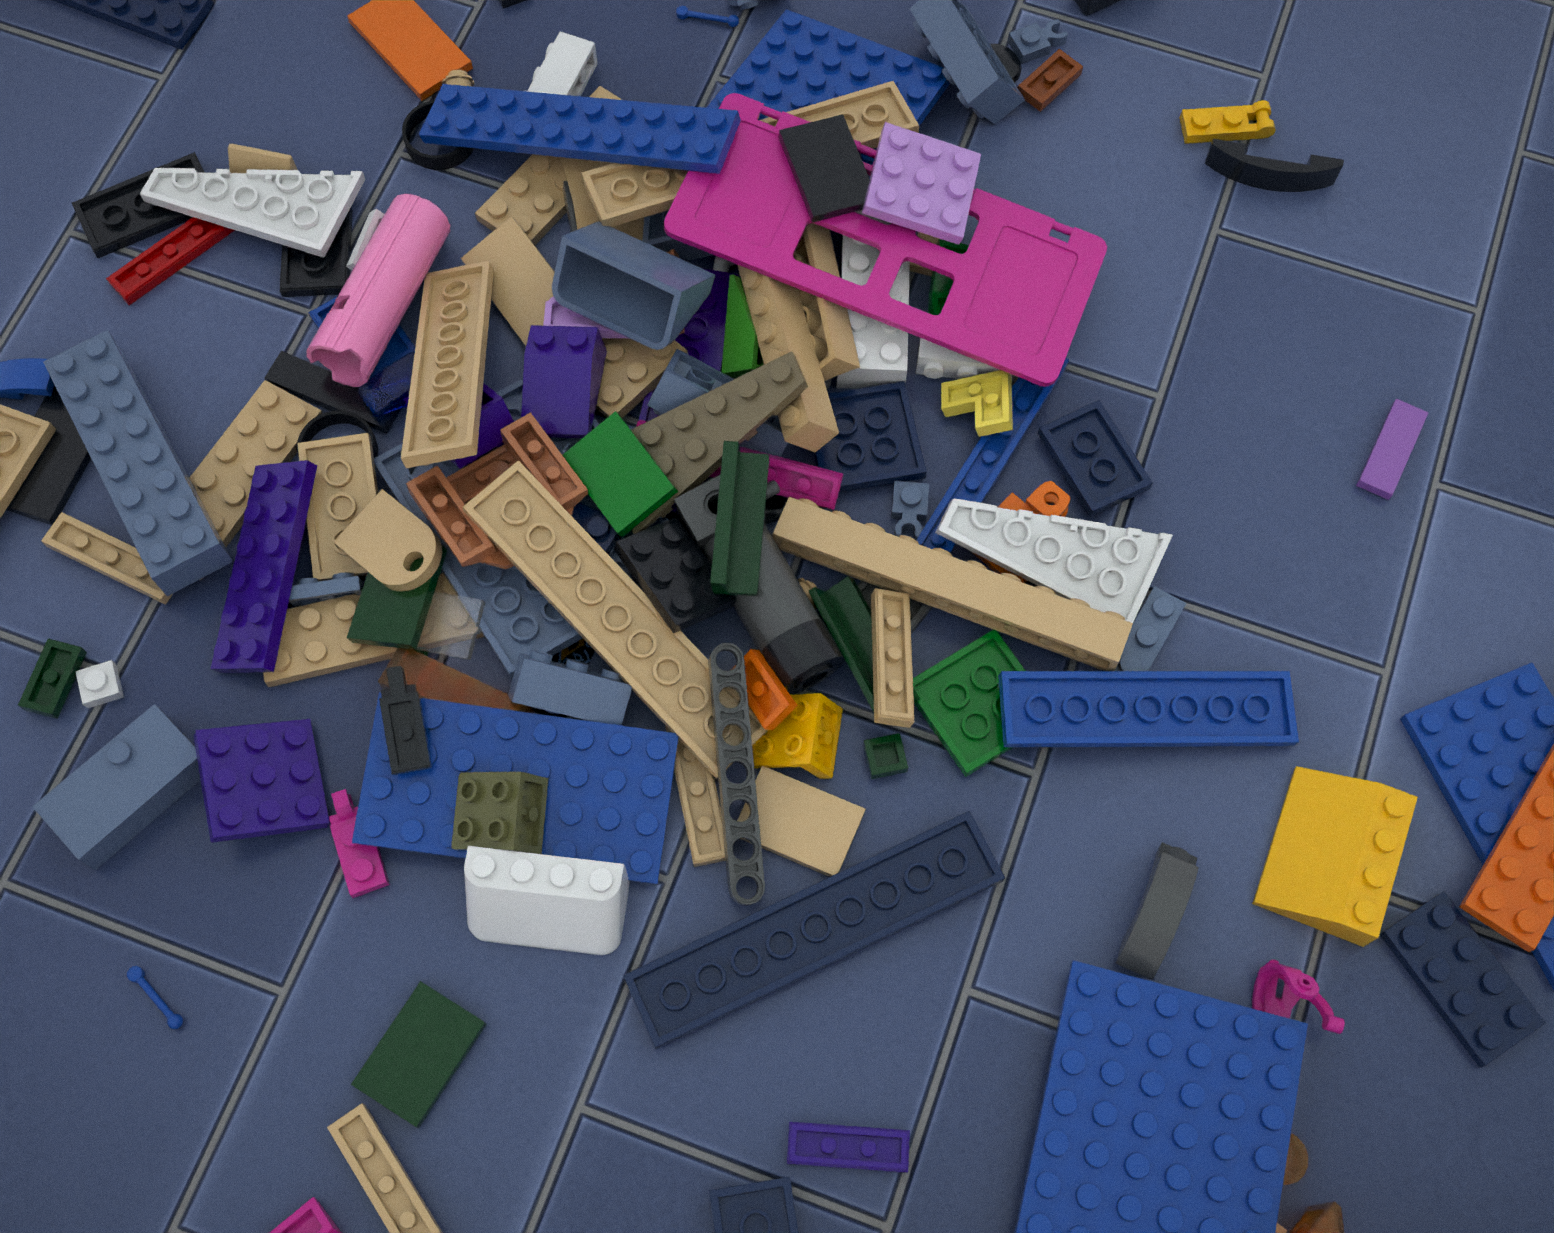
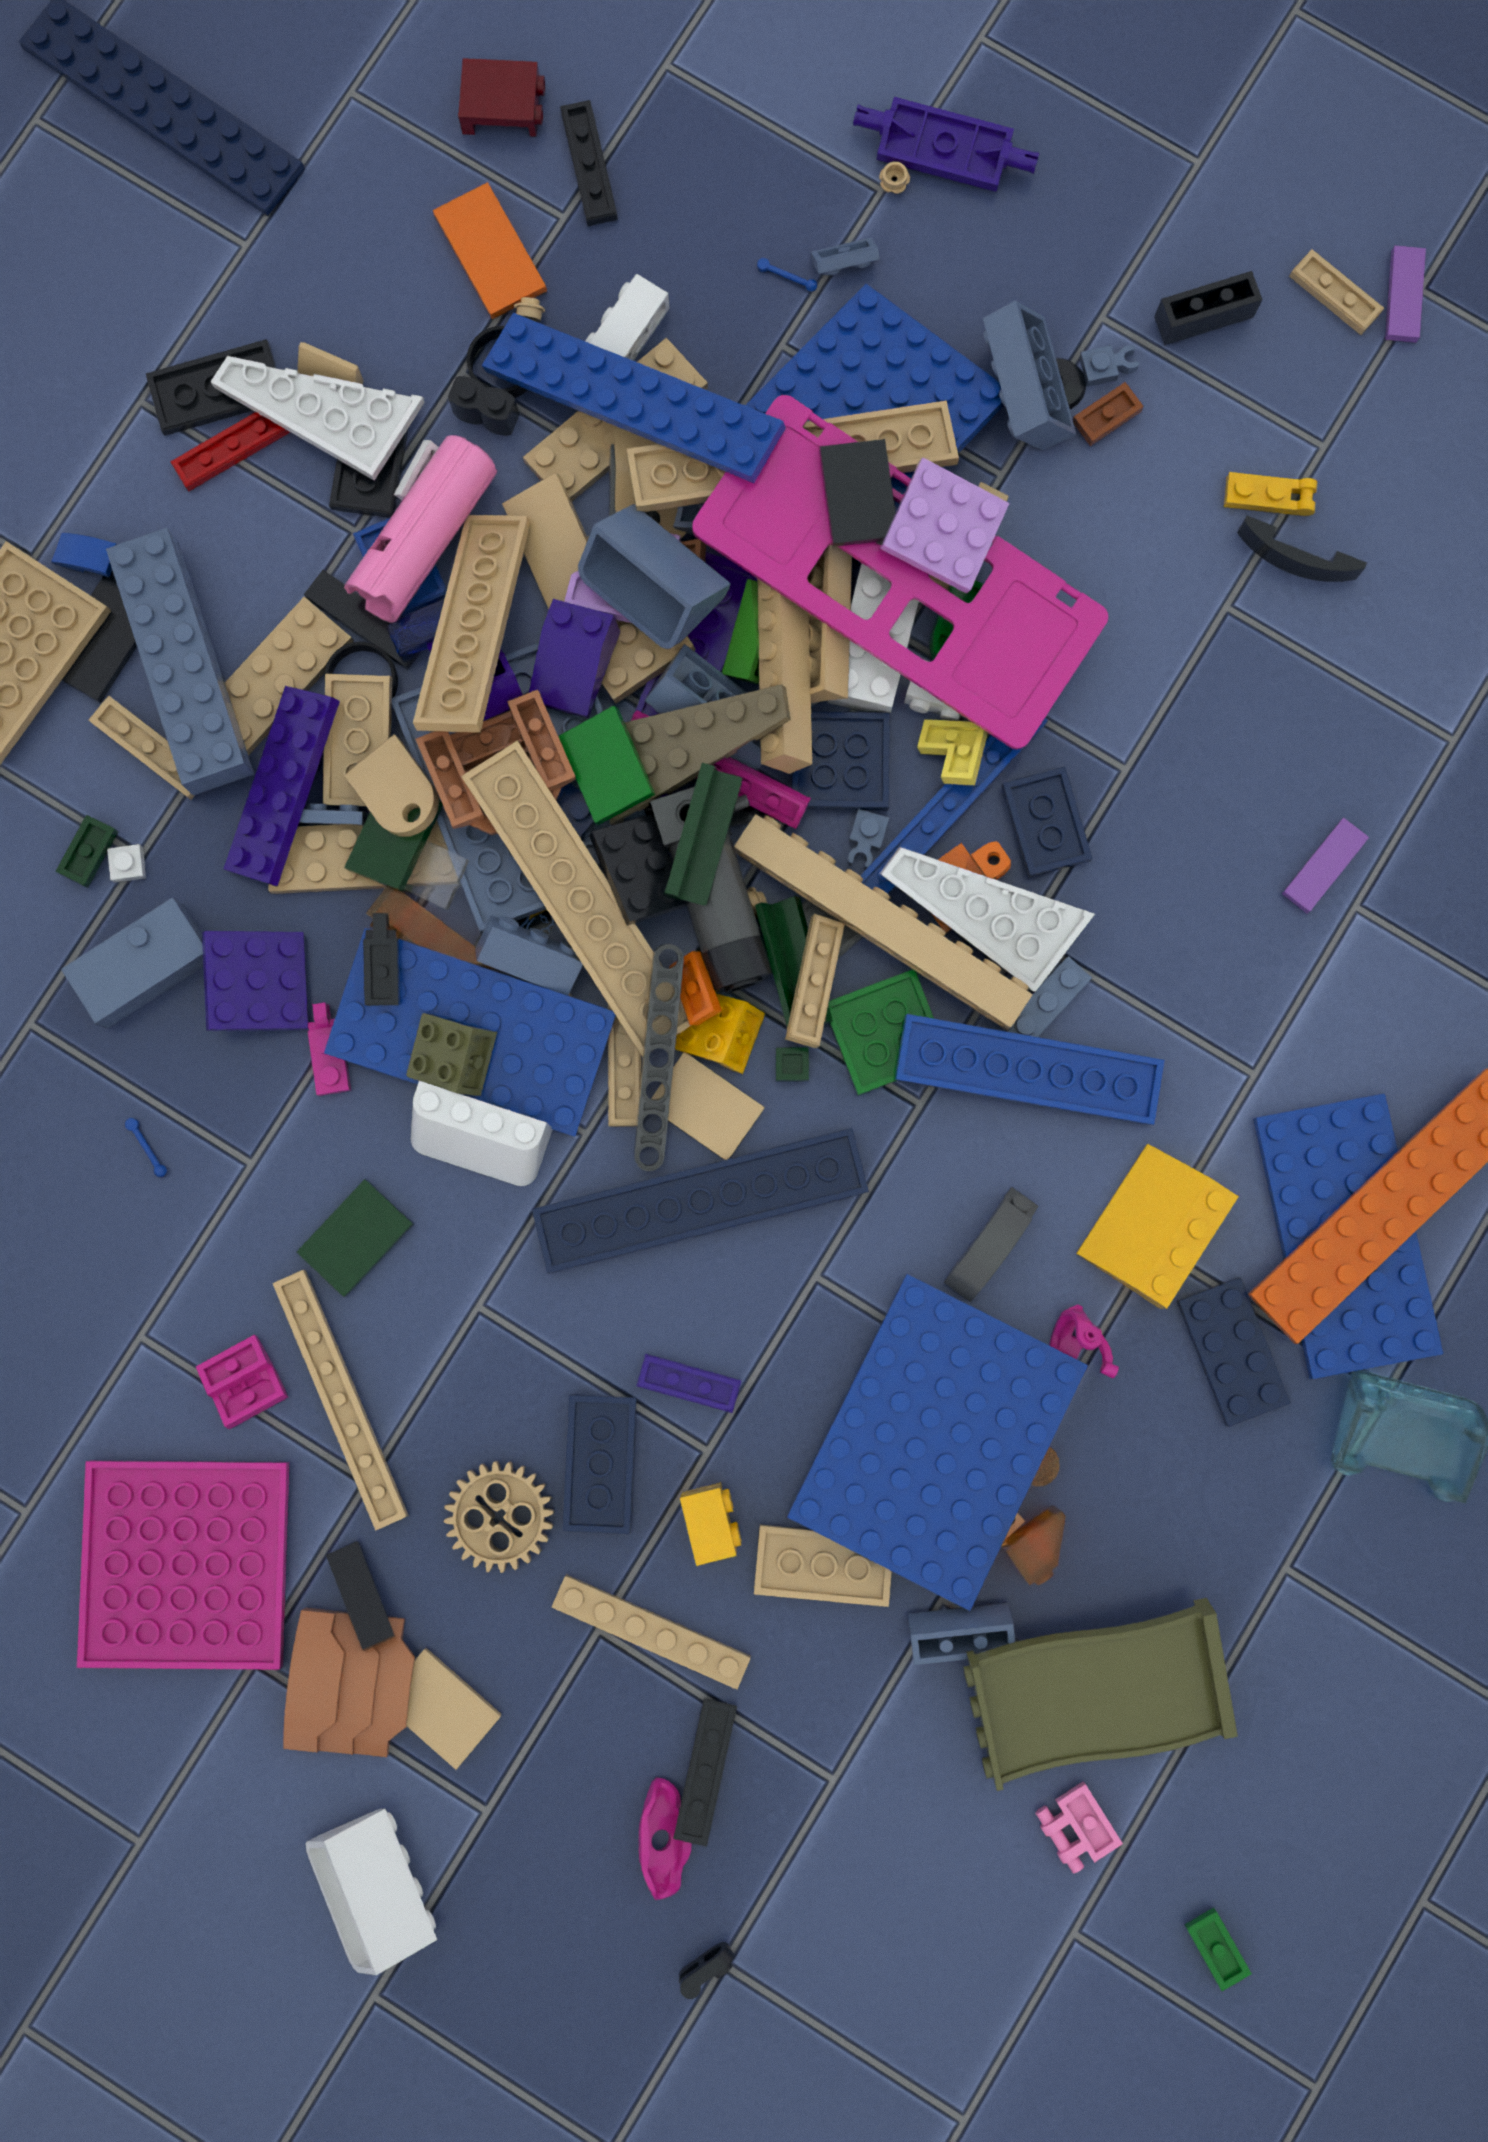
camera: 15 degrees right, 15 degrees up
(426, 172) = (483, 405): none -> black brick

